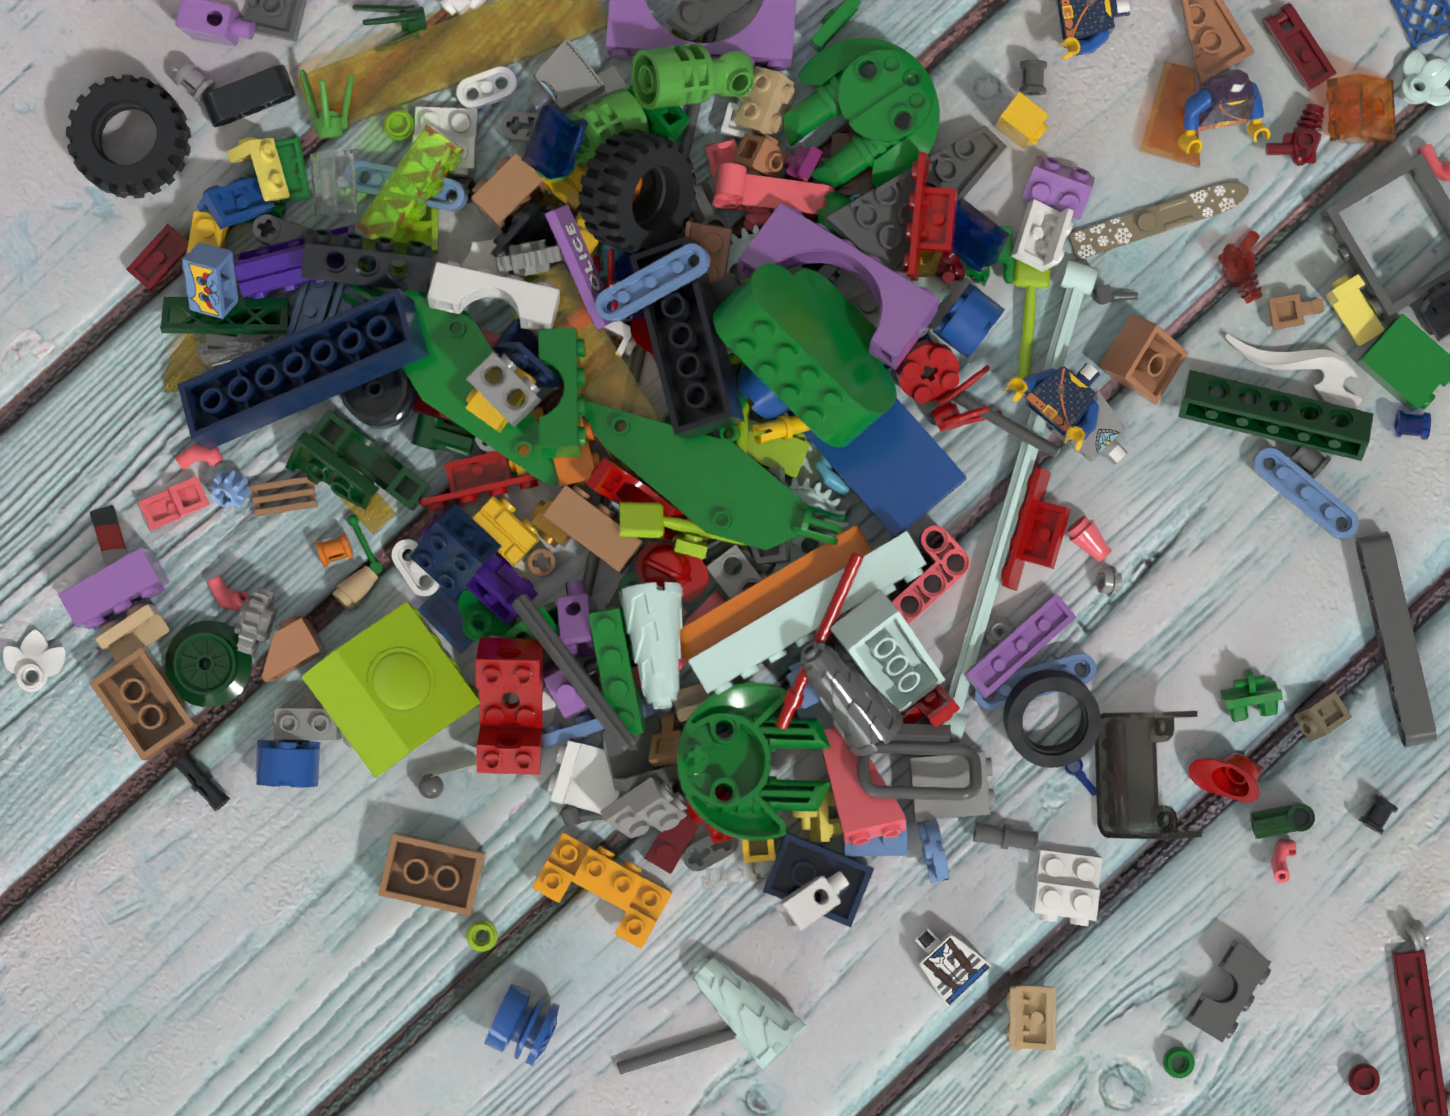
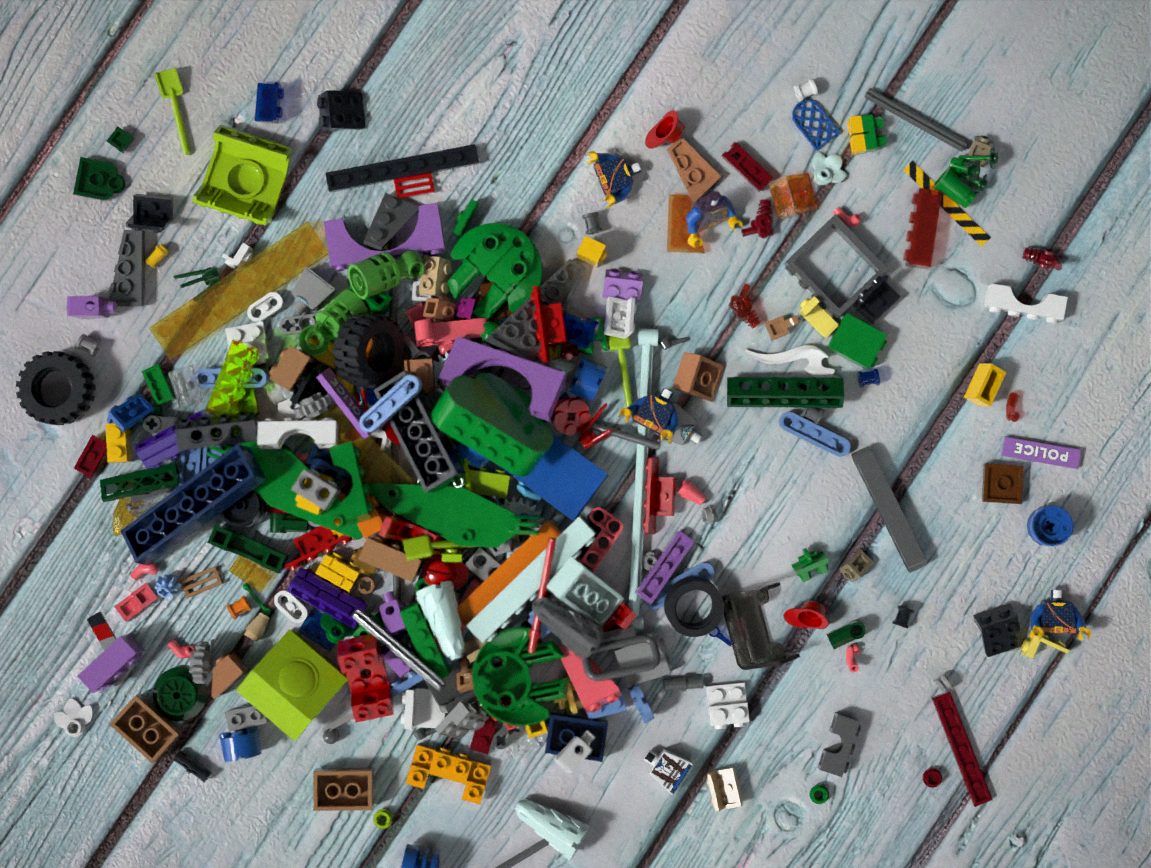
camera: 15 degrees left, 0 degrees up
(138, 630) = (133, 683): tan bracket -> none
(210, 280) = (124, 464): medium blue brick -> none
(248, 96) = (122, 346): black beam -> none
(266, 165) = (143, 386): light yellow bracket -> none
(324, 466) = (225, 560): dark green wing -> none
(327, 122) = (172, 352): bright green plant -> none
(399, 125) = (218, 342): lime plate -> none
(454, 550) = (311, 591): dark blue bracket -> none
(554, 143) = (311, 333): clear blue bracket -> none
(782, 427) = (490, 470): yellow pin -> none
(1157, 219) = (686, 290): dark tan piece -> none

